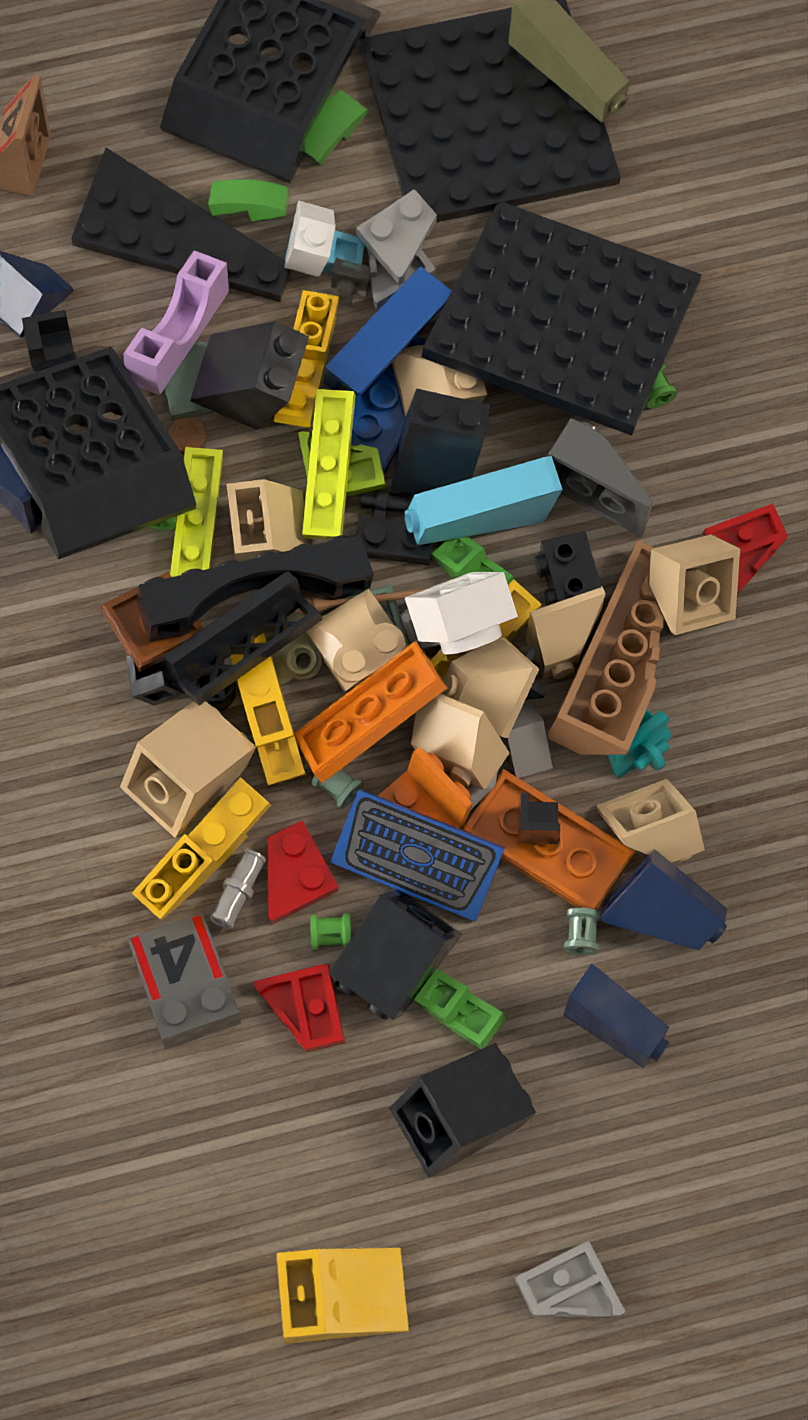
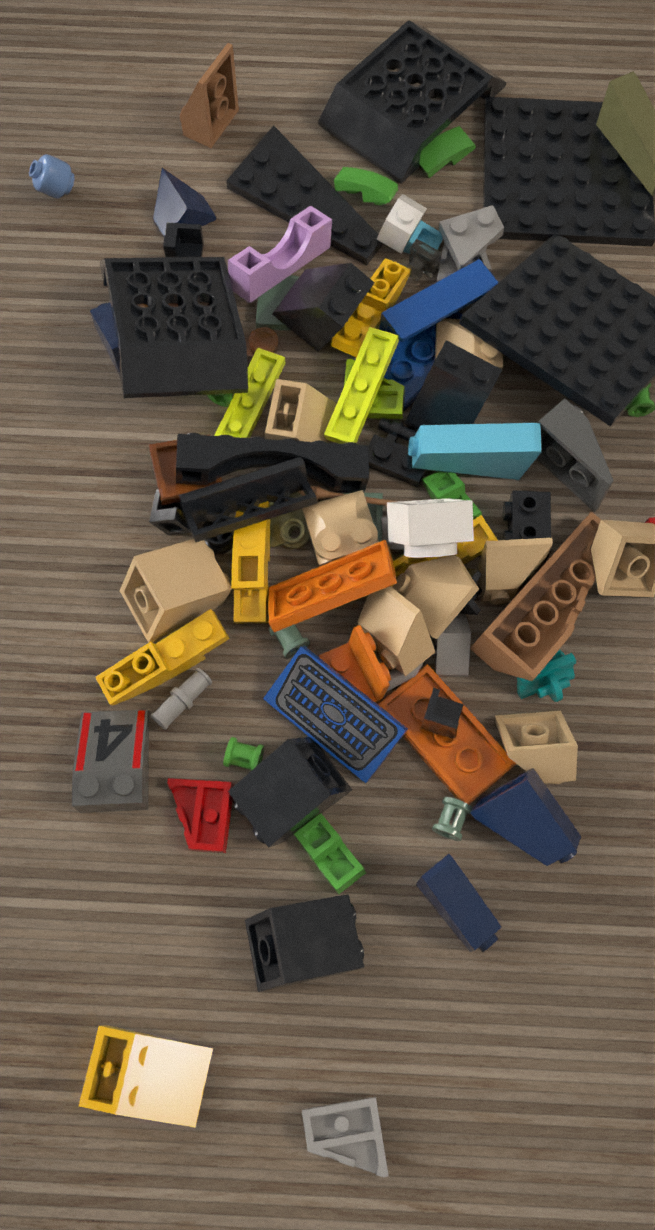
camera: 20 degrees right, 0 degrees up
(295, 873) = (232, 699): red wing -> none

